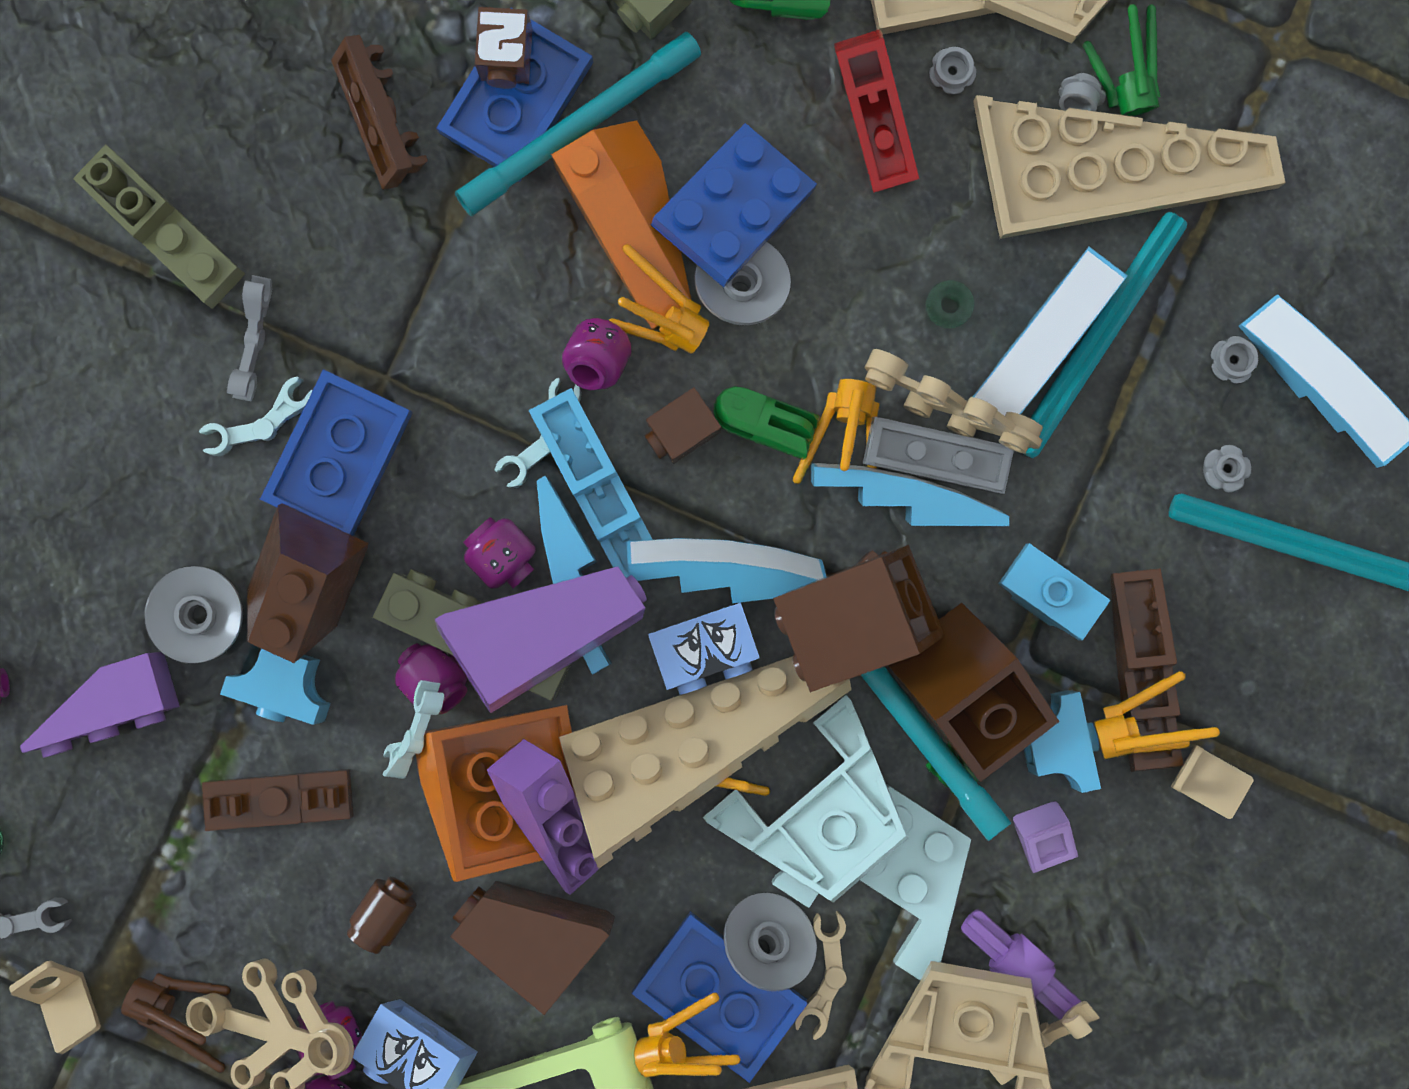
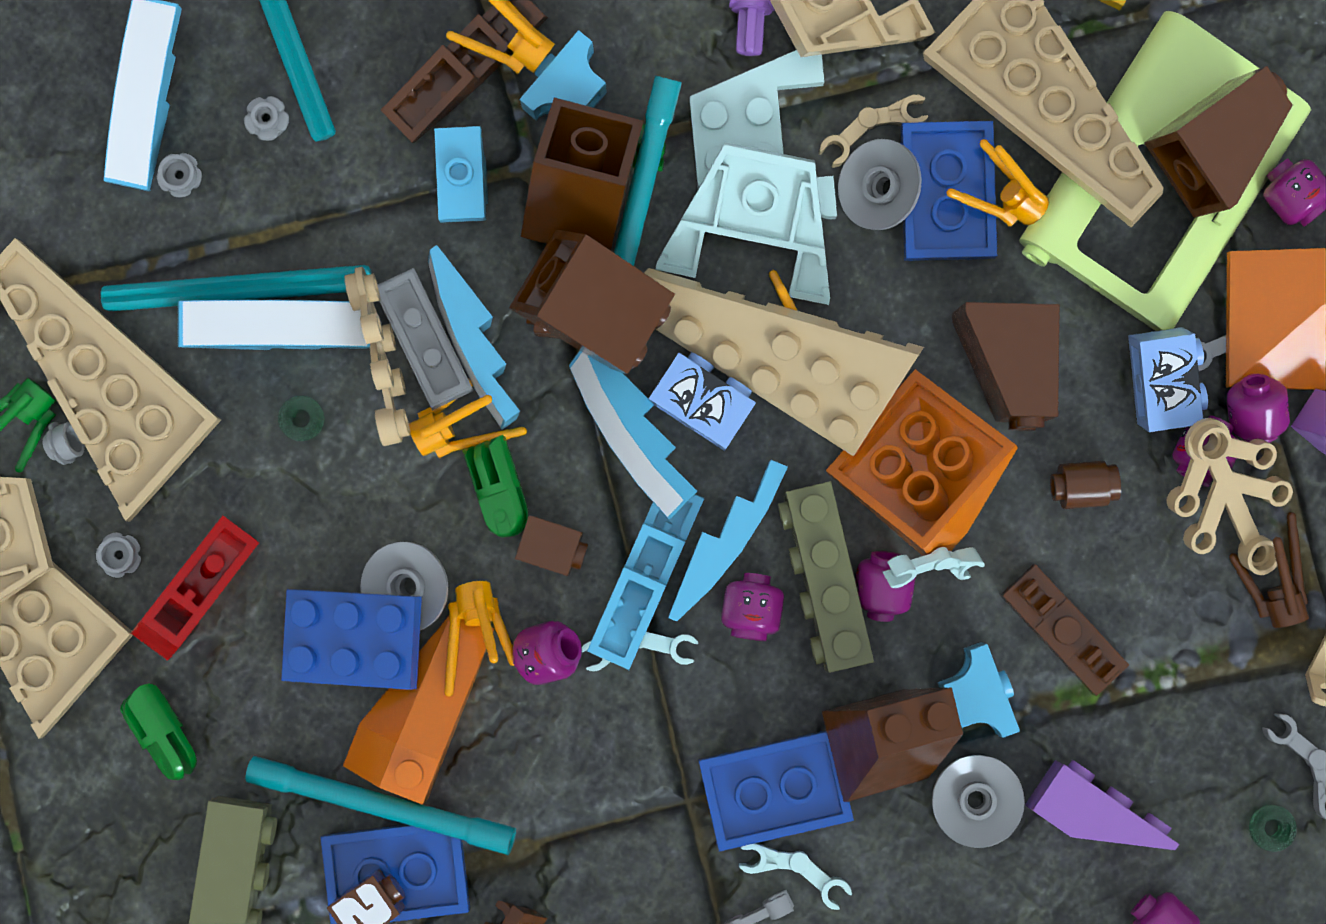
camera: 130 degrees left, 0 degrees up
(535, 633) = (792, 529): medium lavender slope -> none
(546, 810) = (913, 420): medium lavender slope -> none
(1045, 836) = (644, 44): lavender slope -> none

